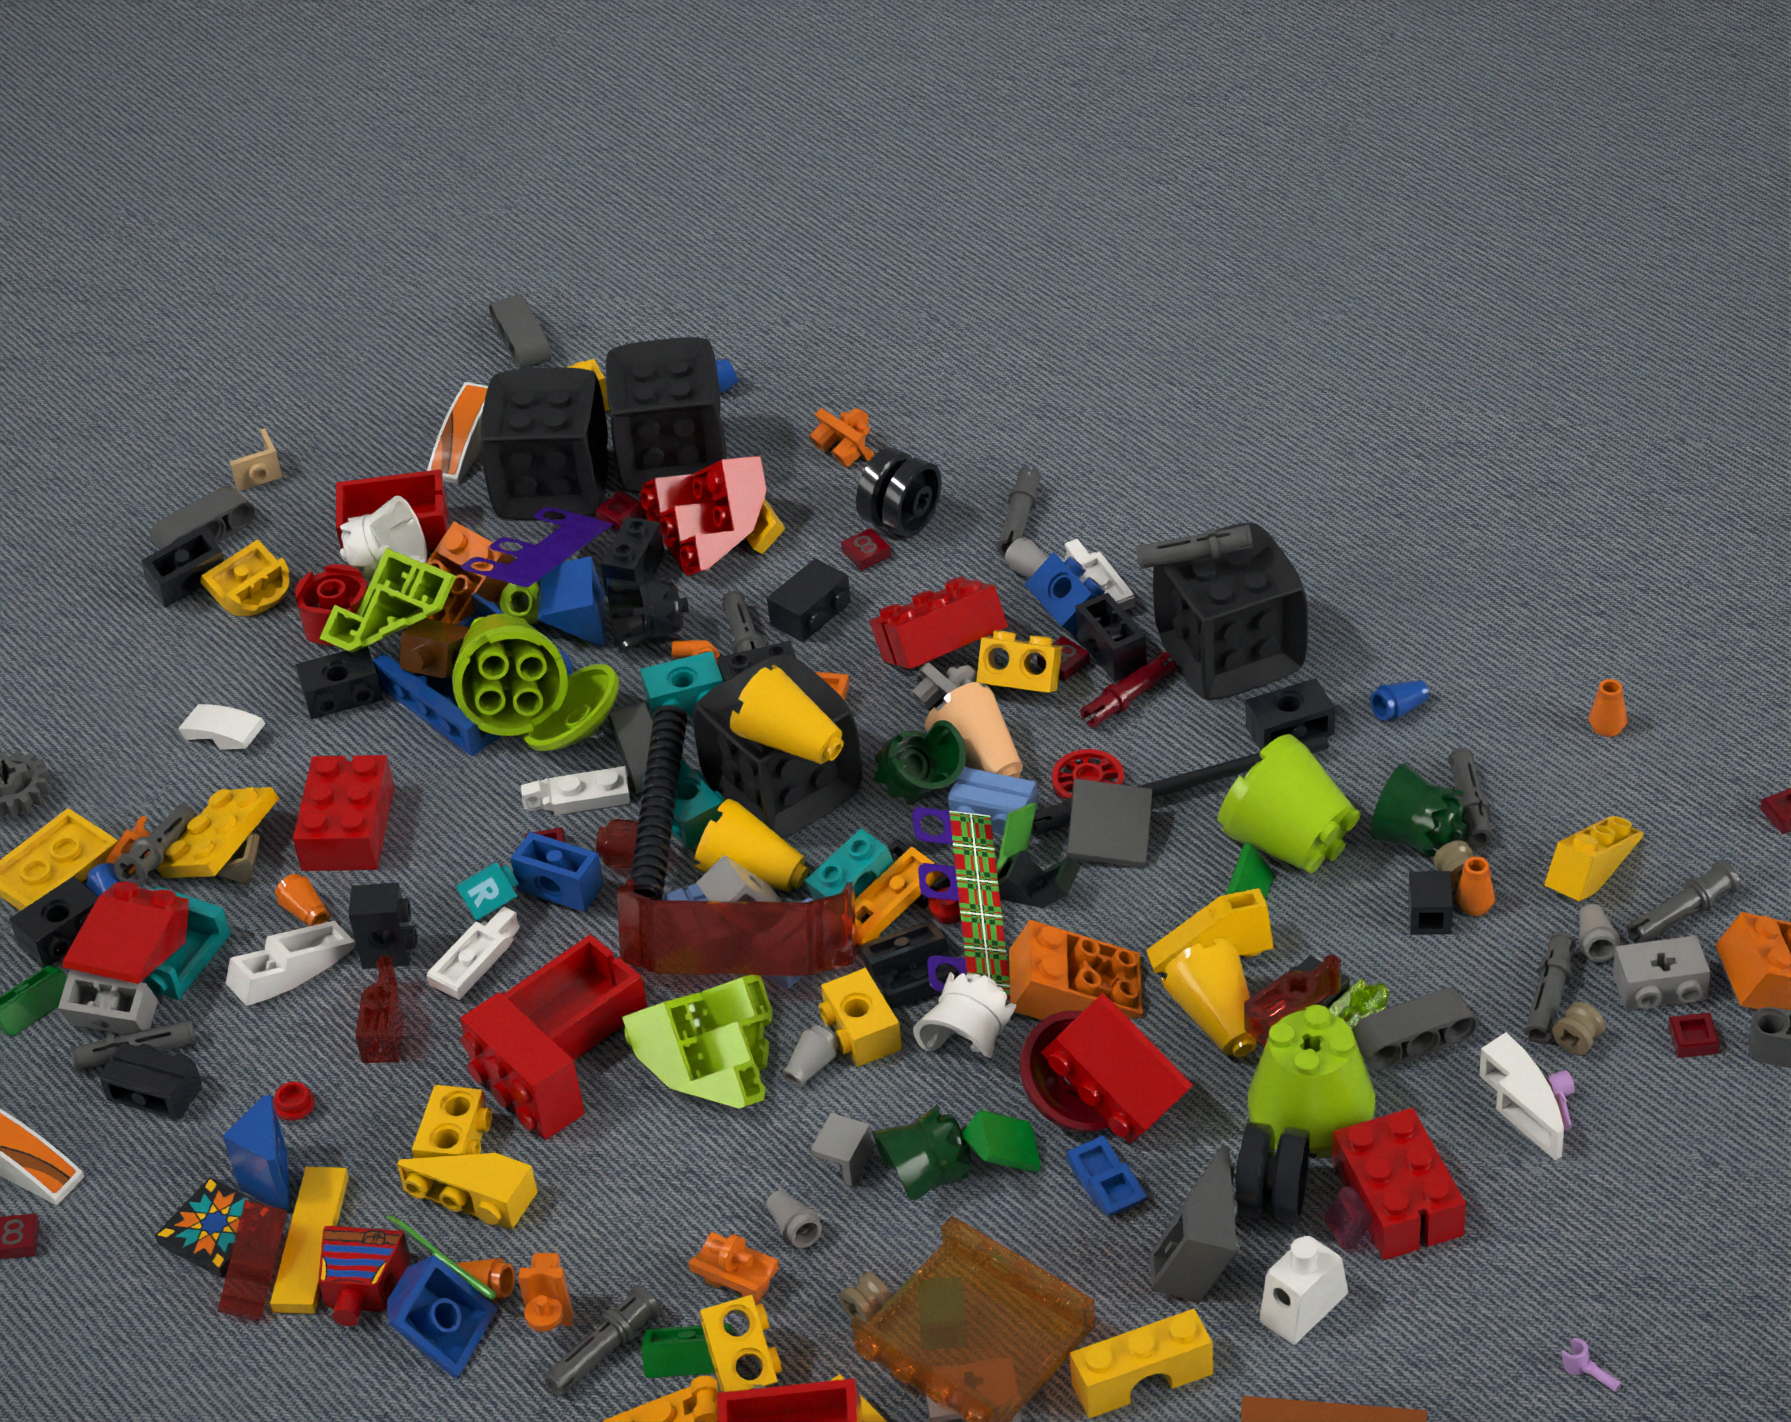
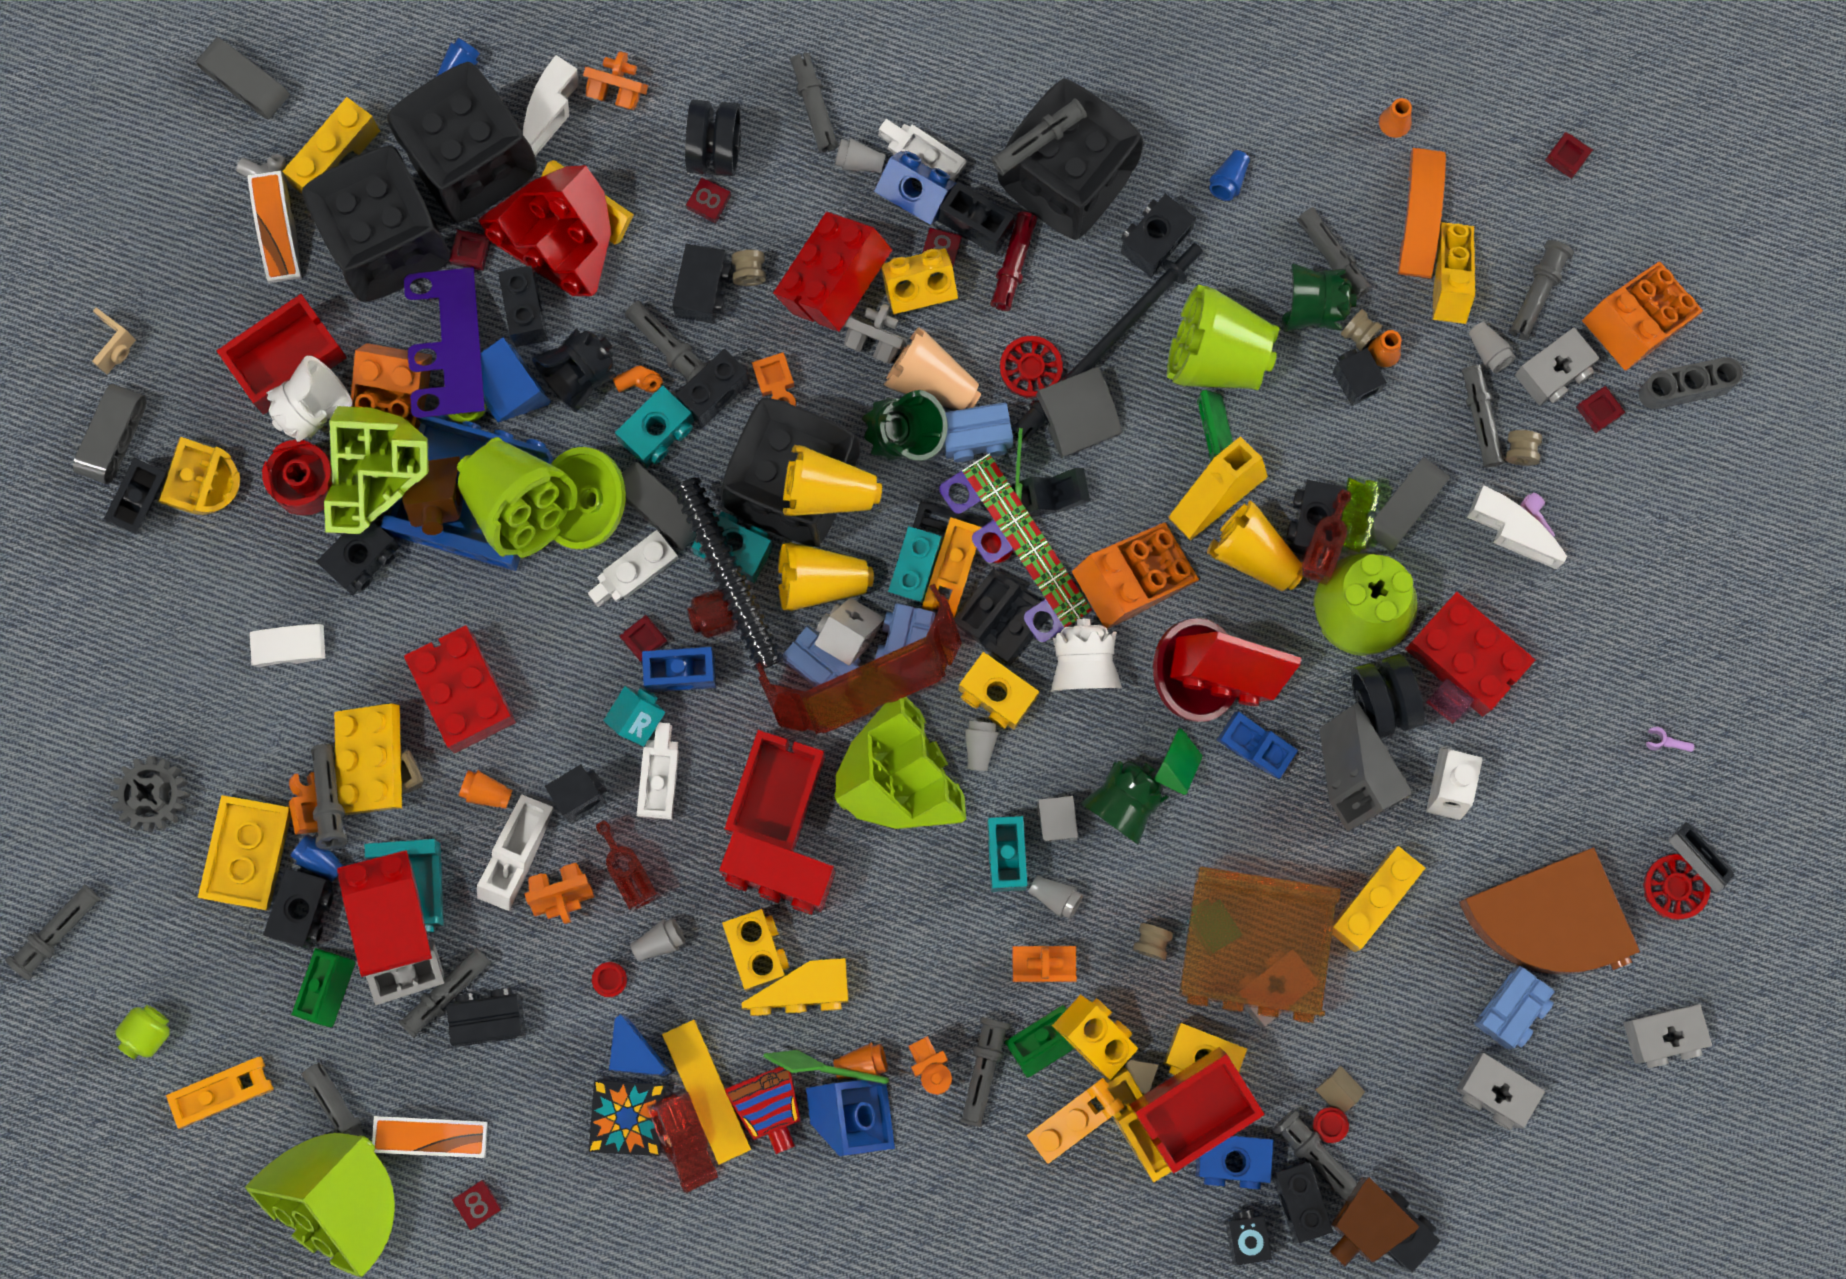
camera: 35 degrees left, 35 degrees up
(303, 1008) = (561, 897): none -> orange hips
(368, 1087) = (659, 940): none -> light grey cone
(765, 1150) = (1007, 854): none -> teal brick
(769, 428) = (549, 103): none -> white slope
(863, 604) = (748, 267): none -> dark tan wheel
(1589, 795) = (1423, 213): none -> orange slope

